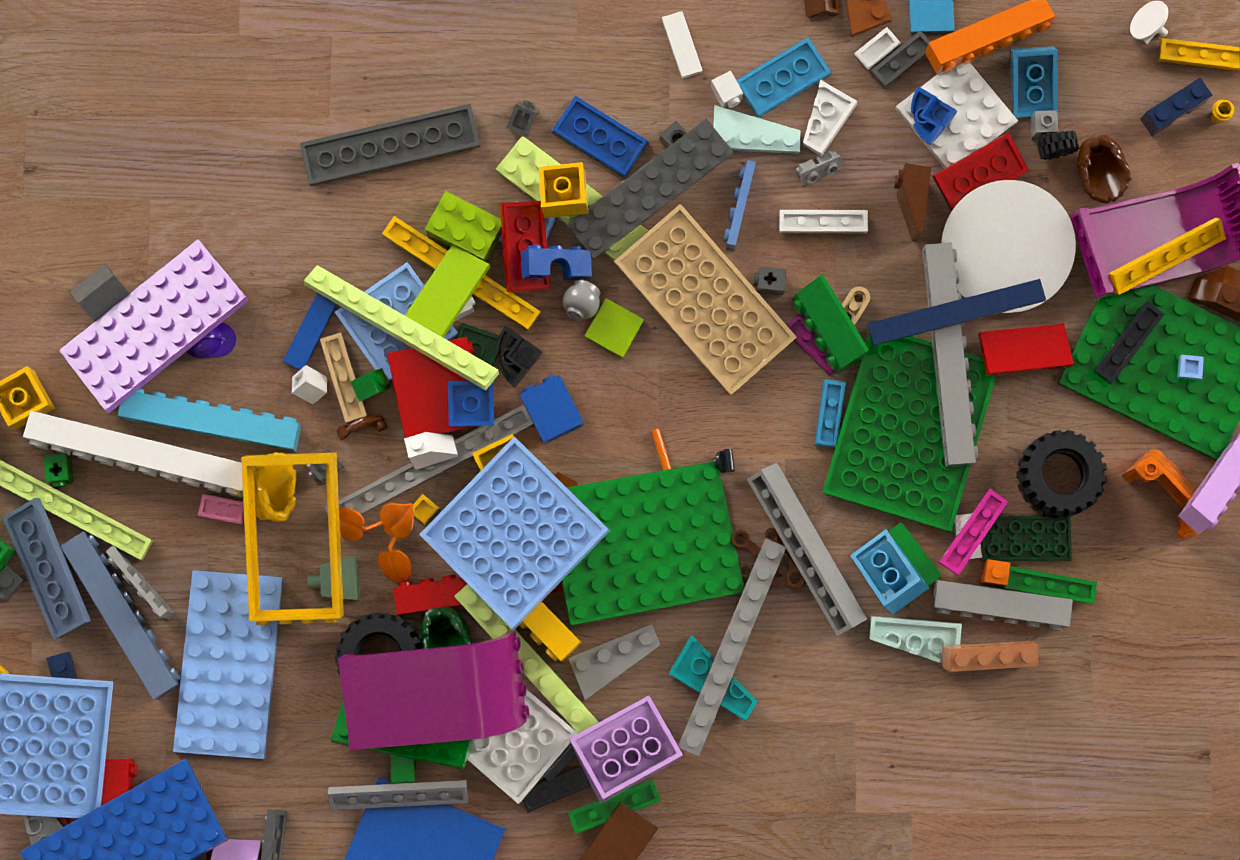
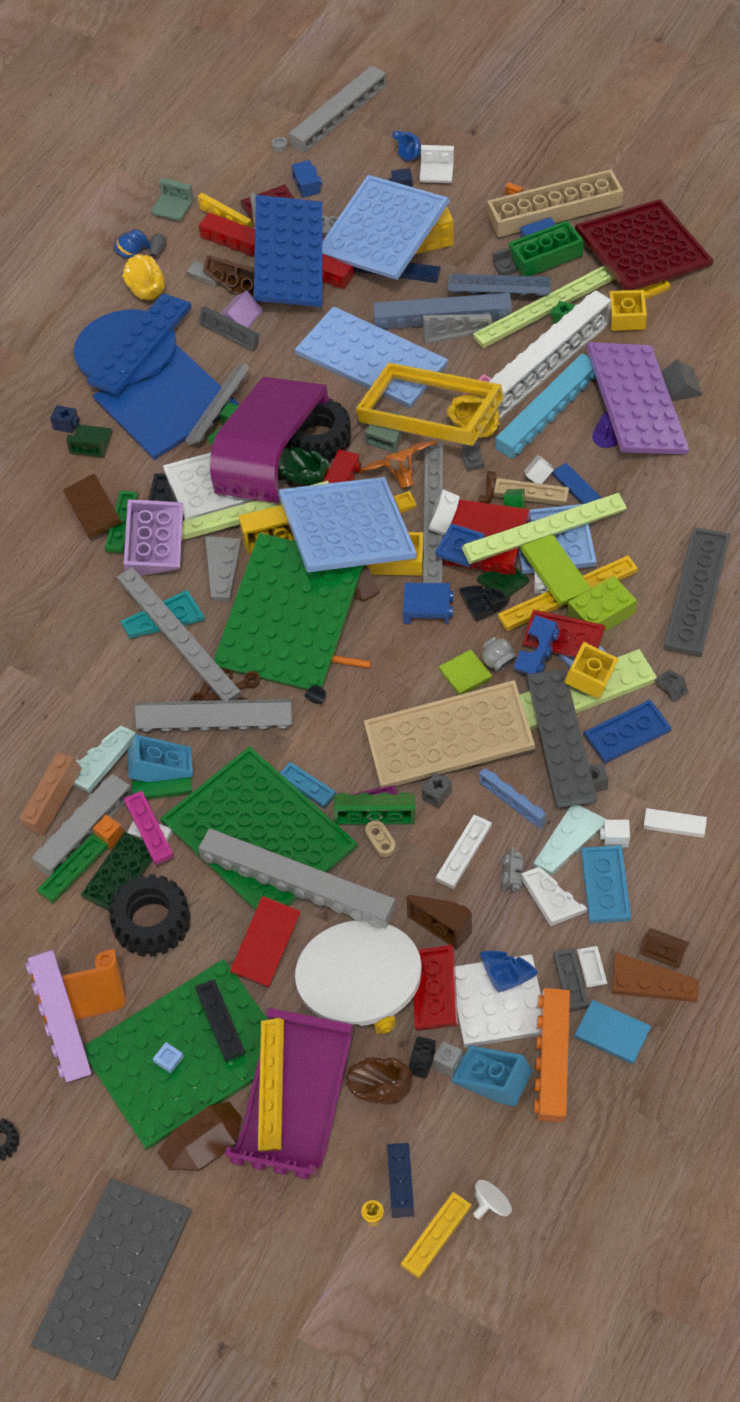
camera: 125 degrees right, 25 degrees down
(956, 312) = (324, 892): dark blue tile -> none

